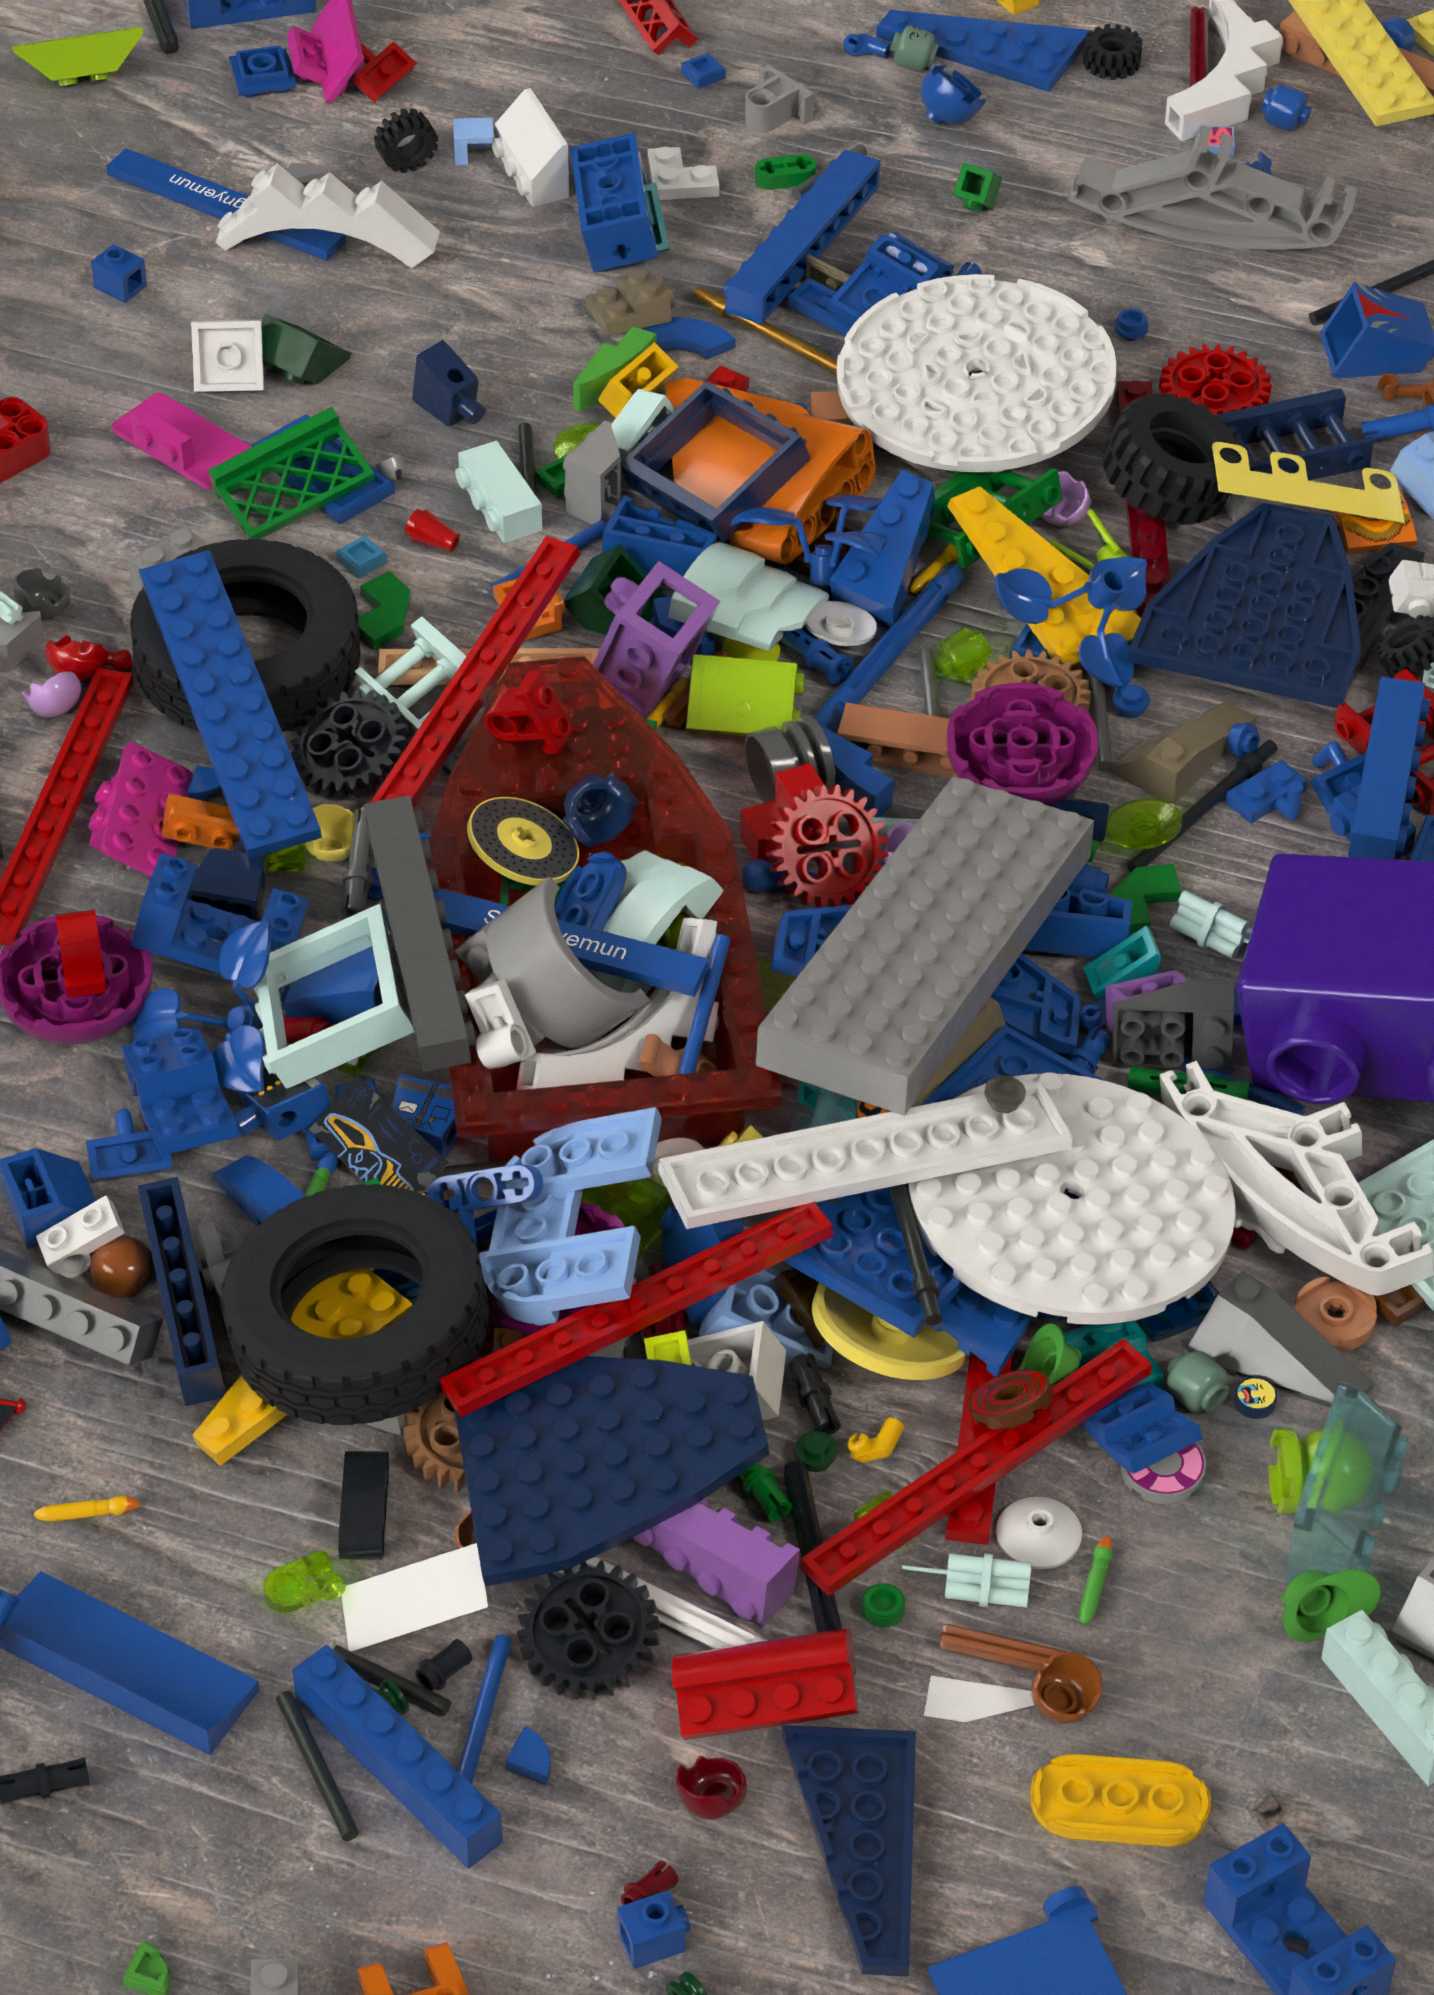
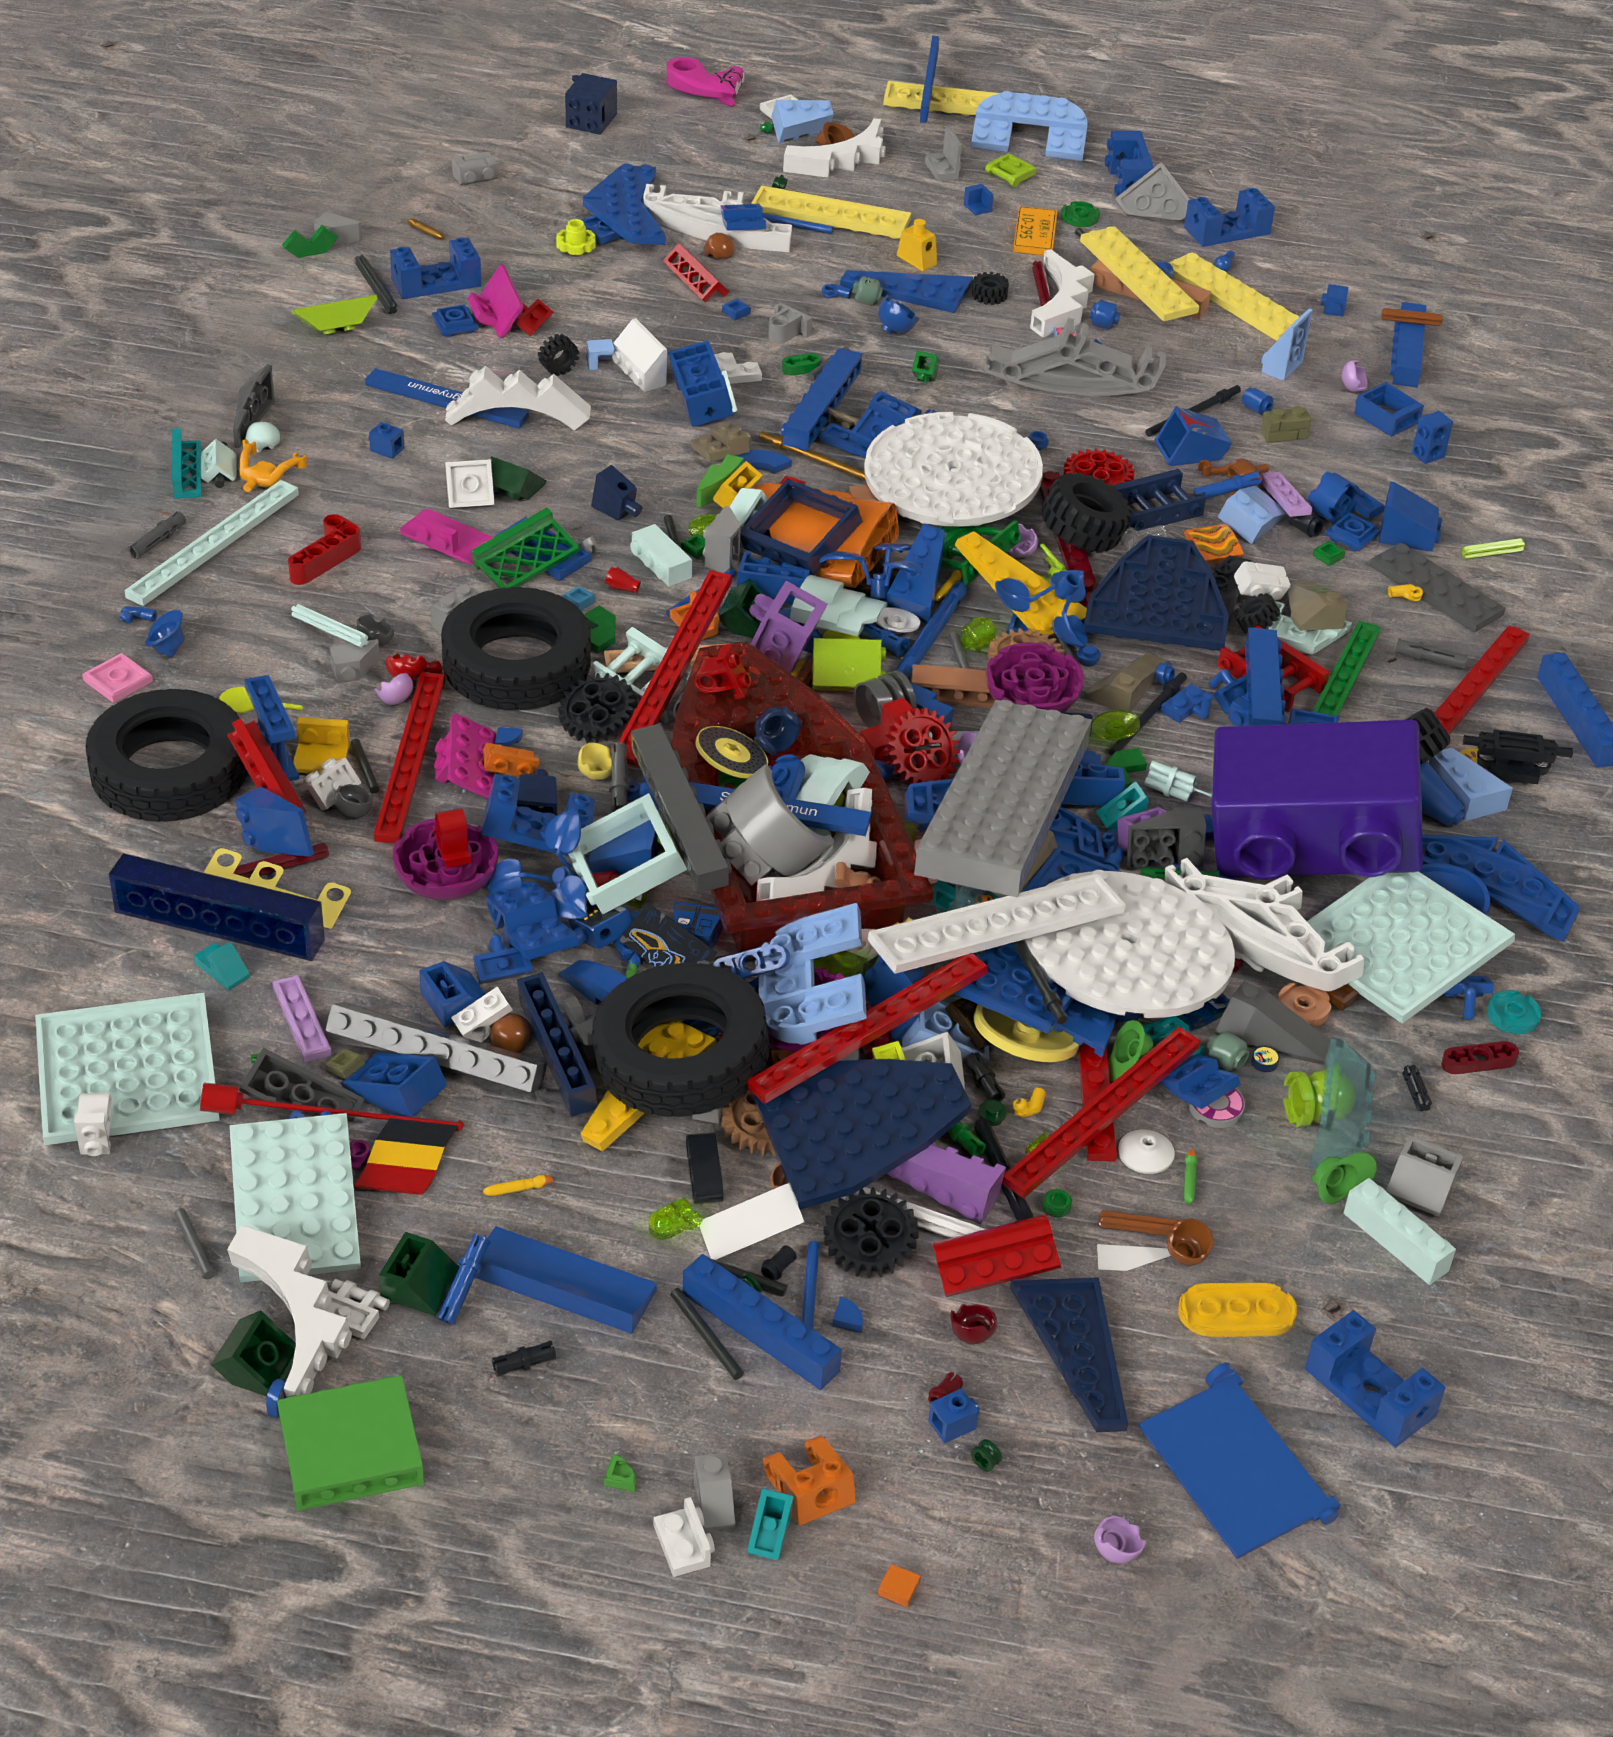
camera: 10 degrees left, 5 degrees down
(230, 705) = (519, 685): blue plate -> none
(287, 859) = (567, 776): clear neon green tile -> none
(501, 1027) = (745, 860): white plate -> none
(705, 1005) = (871, 841): blue bar -> none
(984, 1580) = (1121, 1181): light aqua piece -> none
(1004, 1093) = (1078, 880): clear smoke plate -> none
(1011, 1399) = (1116, 1067): reddish brown tile -> none
(1297, 490) = (1168, 526): light yellow piece -> none

